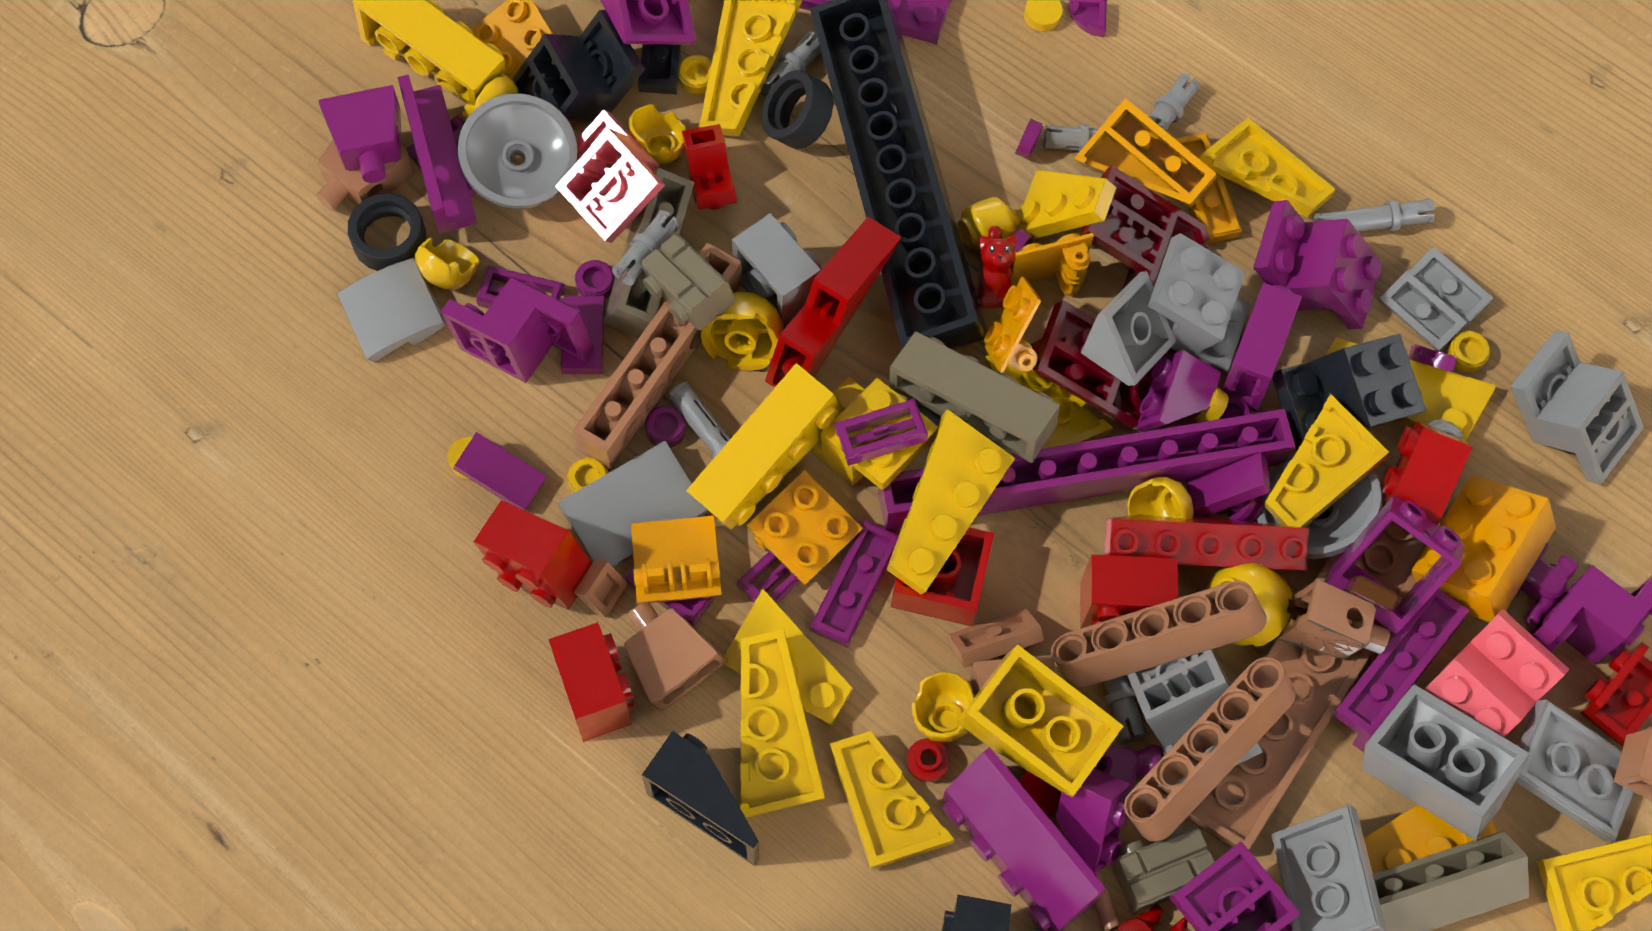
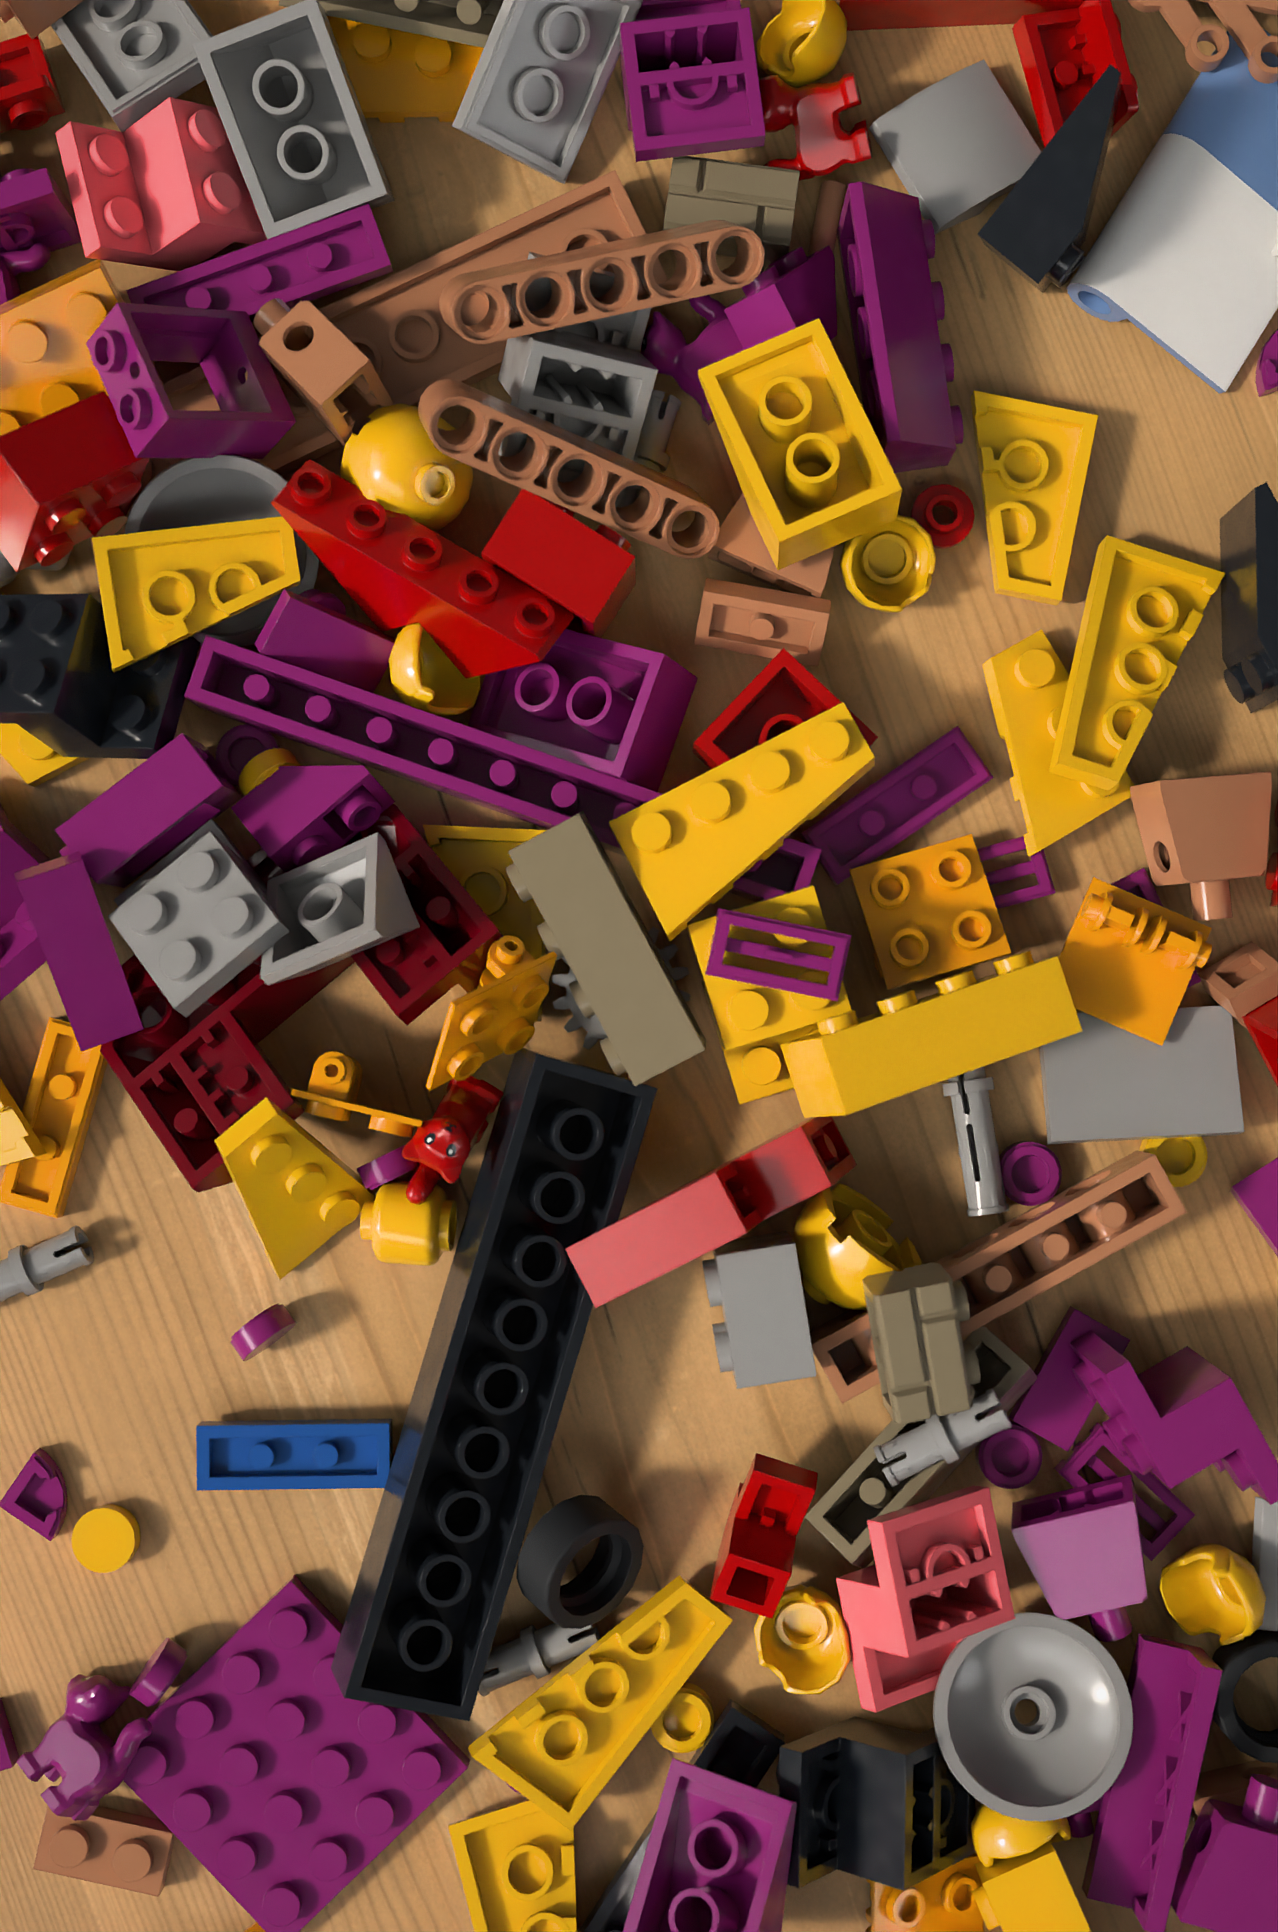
camera: 145 degrees left, 20 degrees up
(530, 244) = (1086, 1552): none -> magenta torso
(975, 92) = (293, 1454): none -> blue plate
(1055, 533) = (592, 706): none -> magenta slope
(1067, 137) = (182, 1290): light grey pin -> none
(1147, 155) = (121, 1188): light orange wedge -> none
(1250, 250) = (79, 950): none -> magenta tile
(1371, 592) = (256, 355): reddish brown tile -> none

